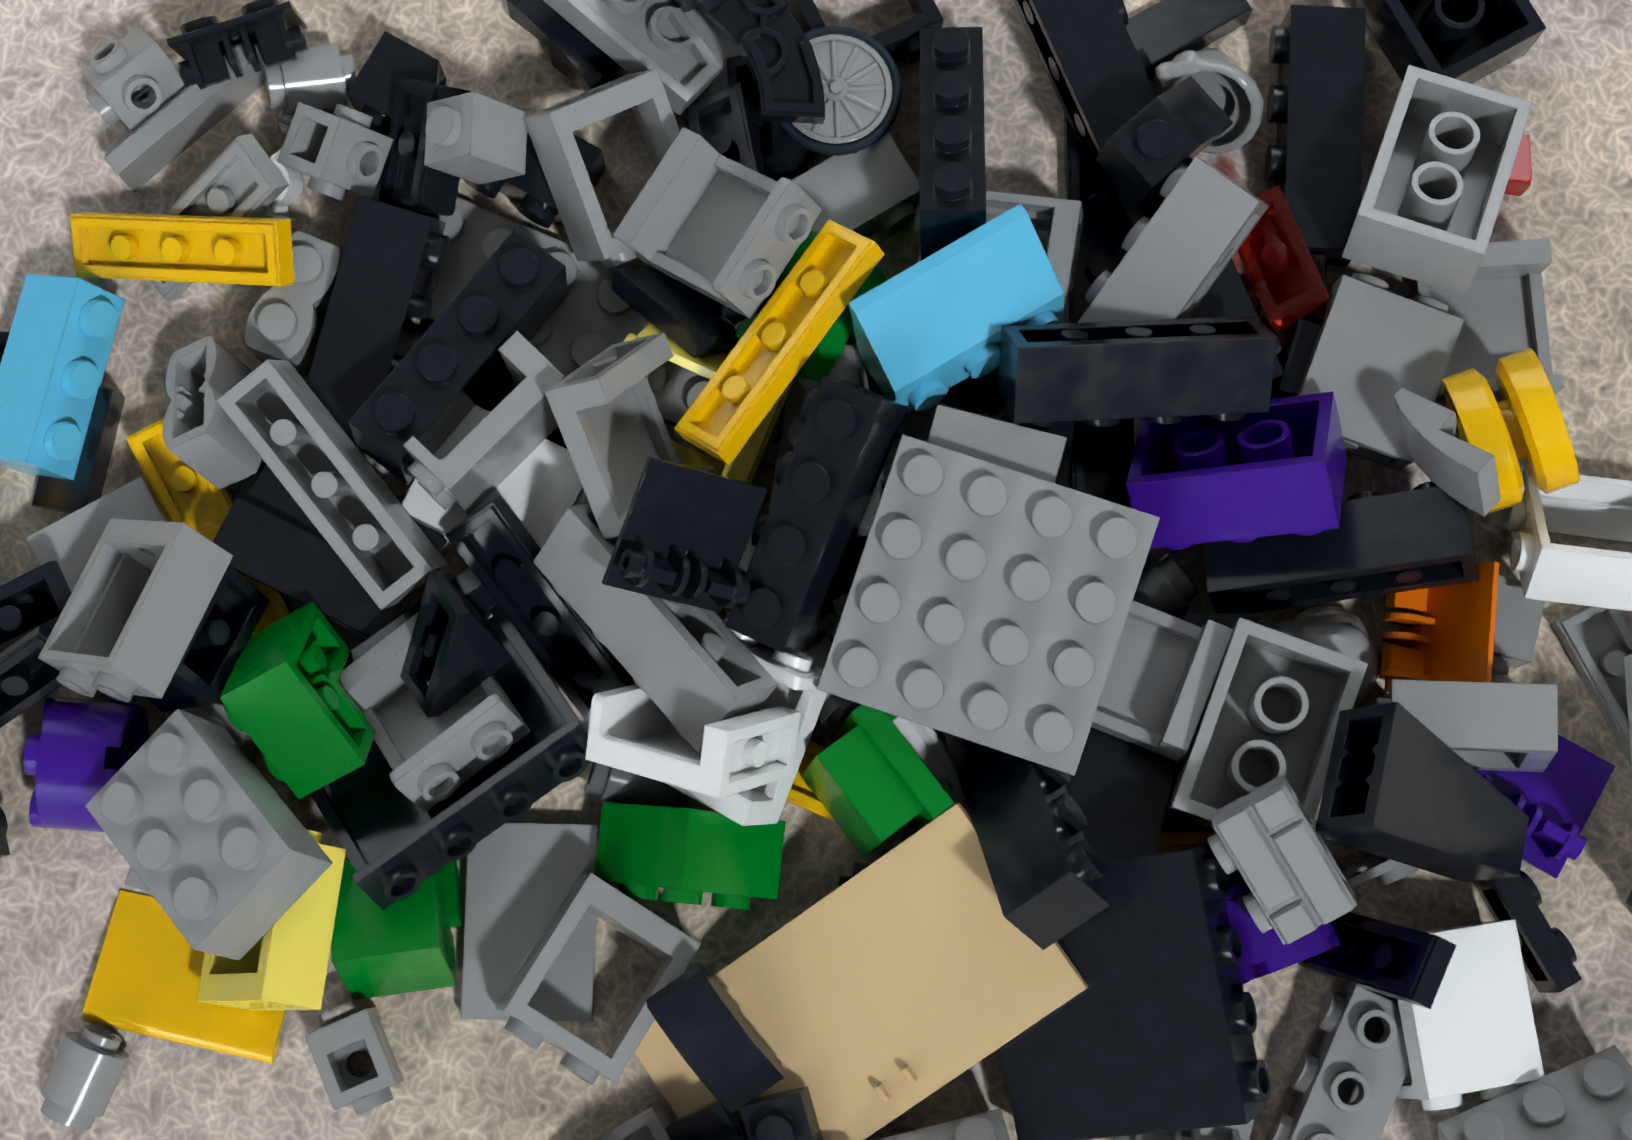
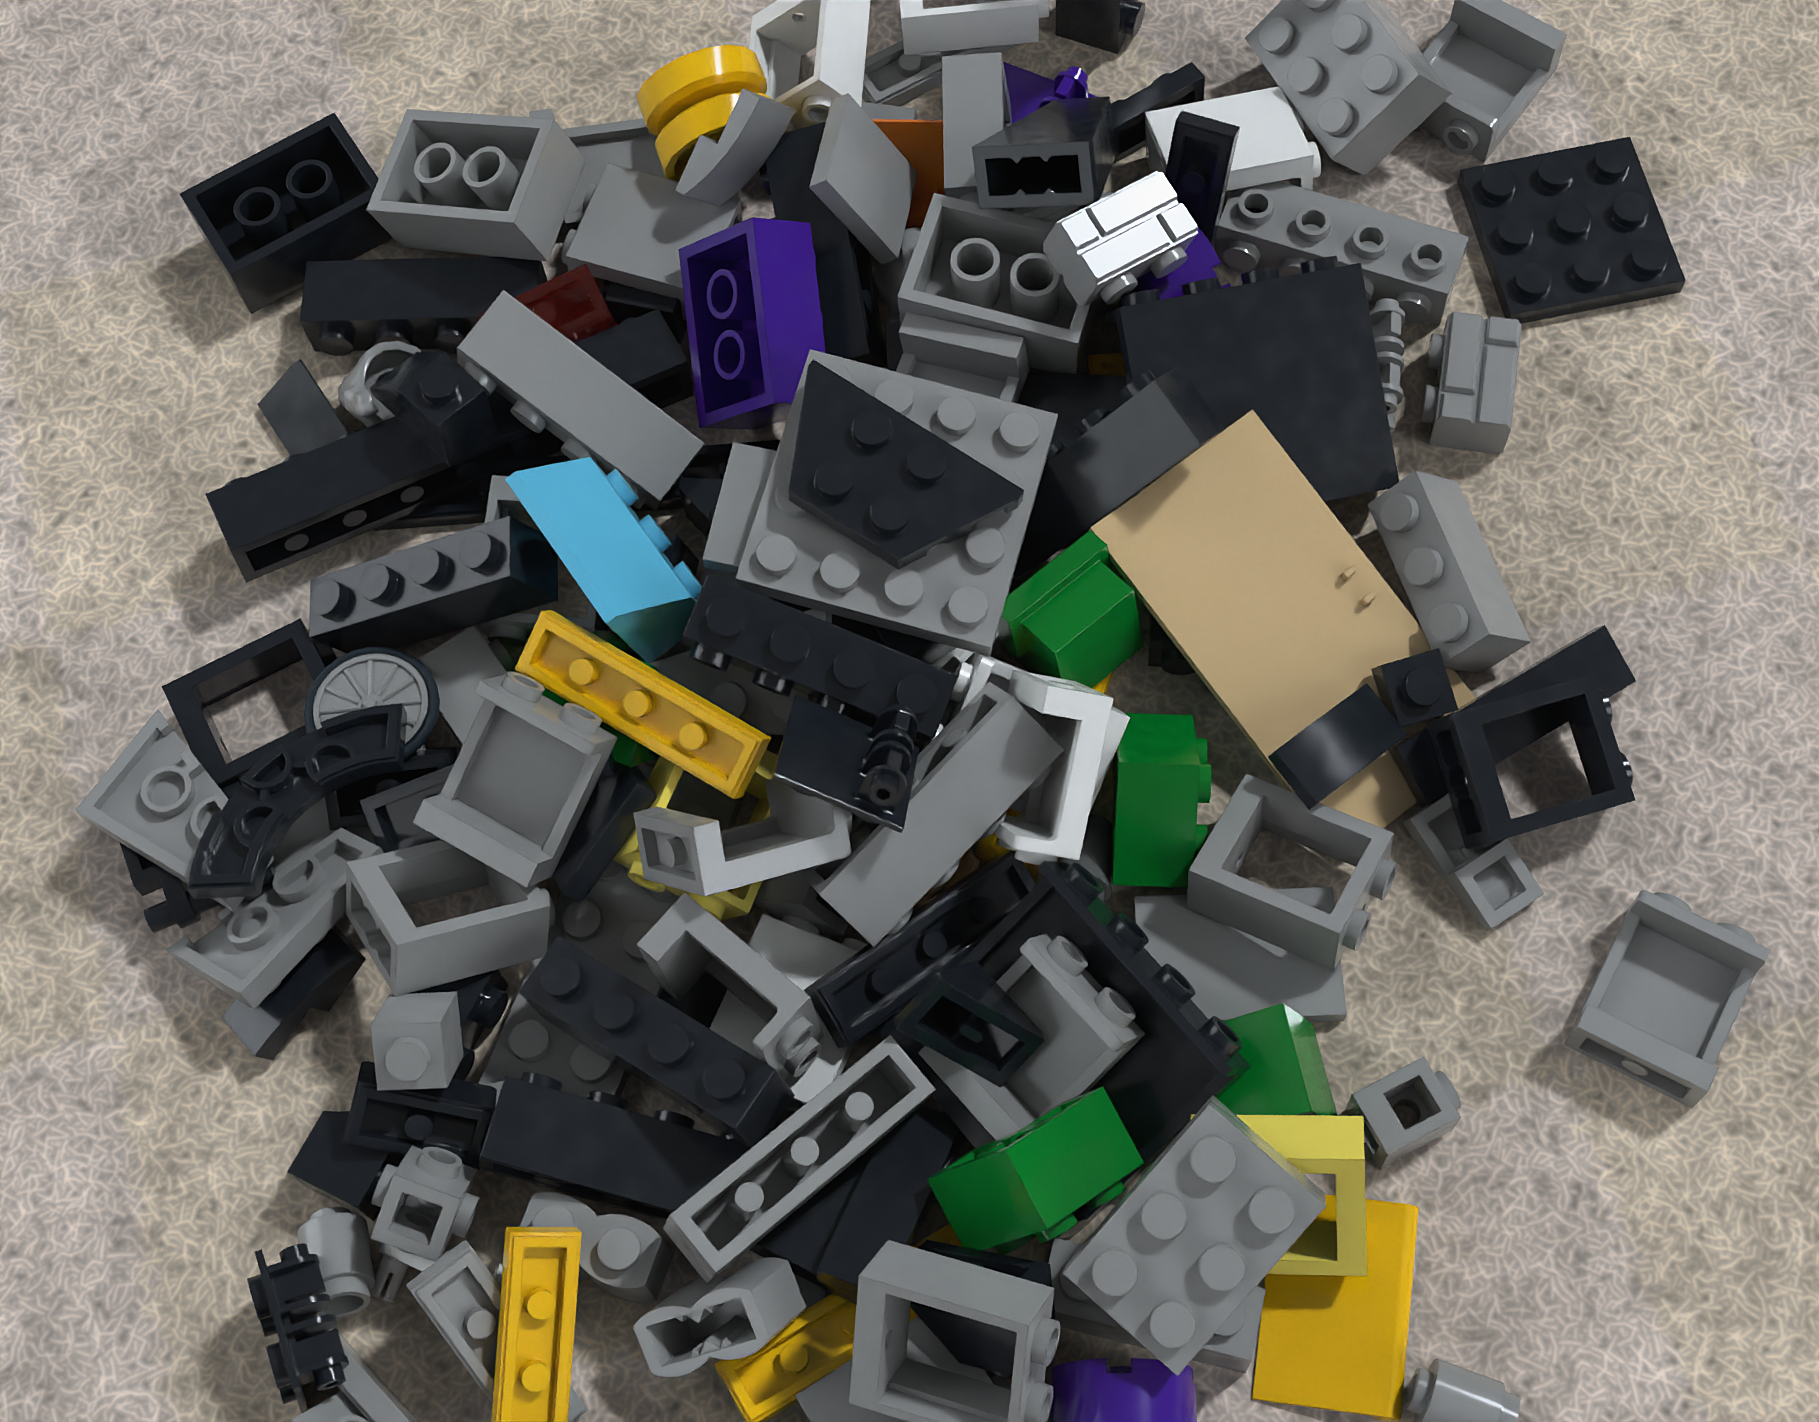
camera: 85 degrees left, 15 degrees down
(999, 585) = (885, 474): none -> black wing
(1135, 371) = (664, 399): black brick -> none
(1409, 592) = (864, 179): none -> light grey tile

